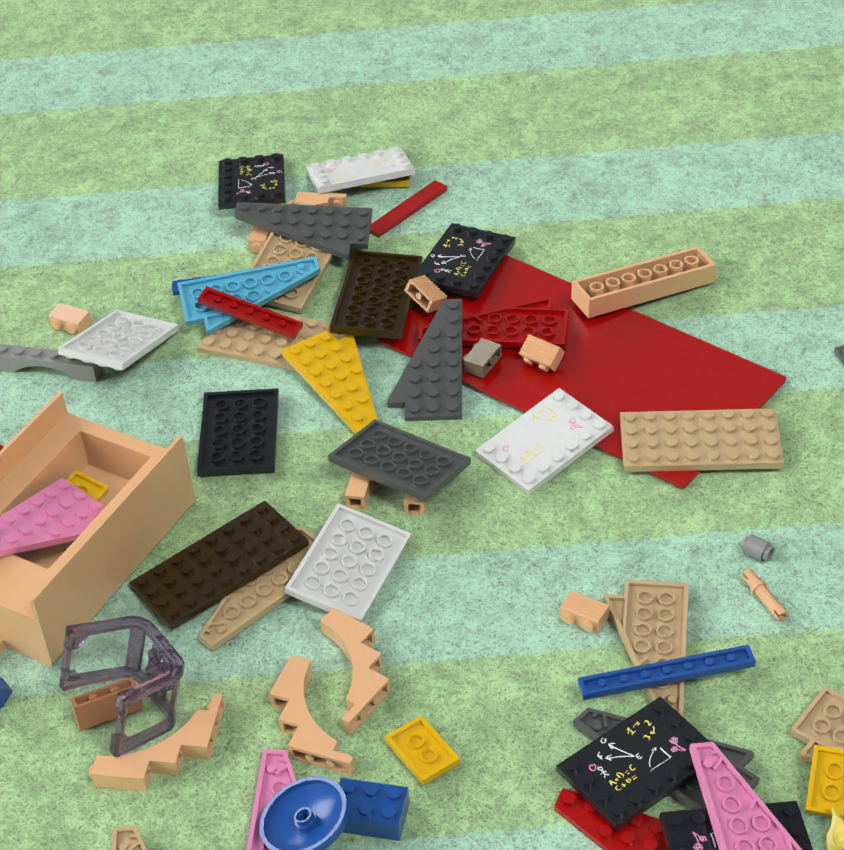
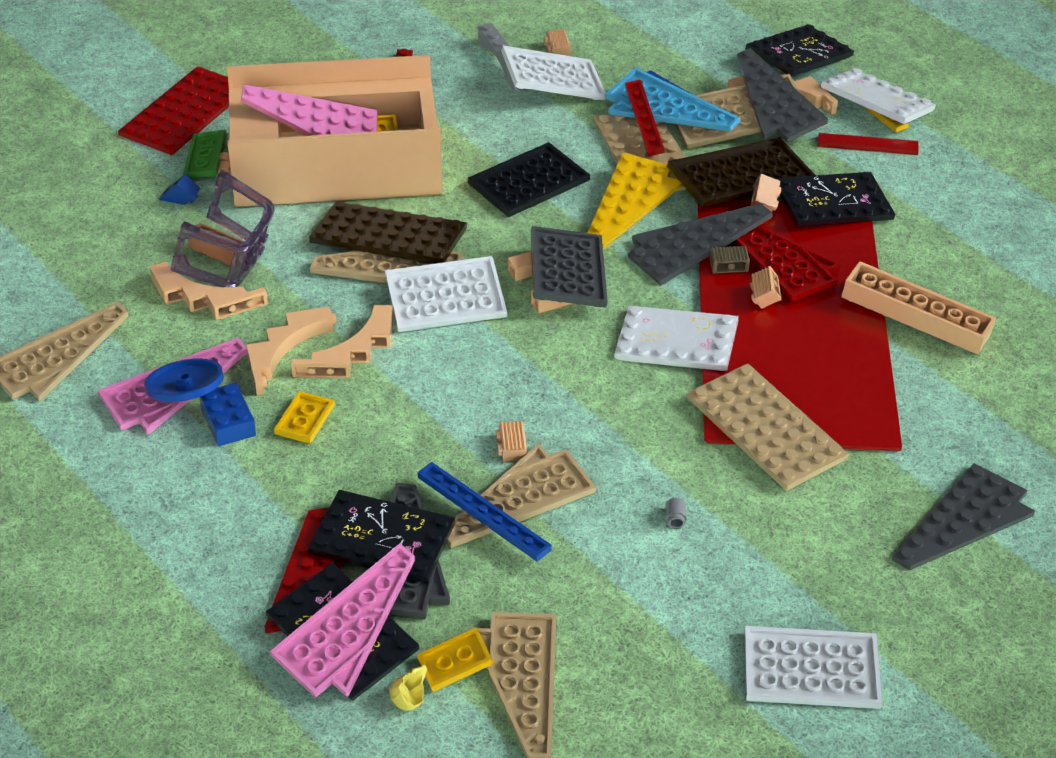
camera: 50 degrees right, 0 degrees up
(760, 588) = (632, 533): light nougat pin -> none

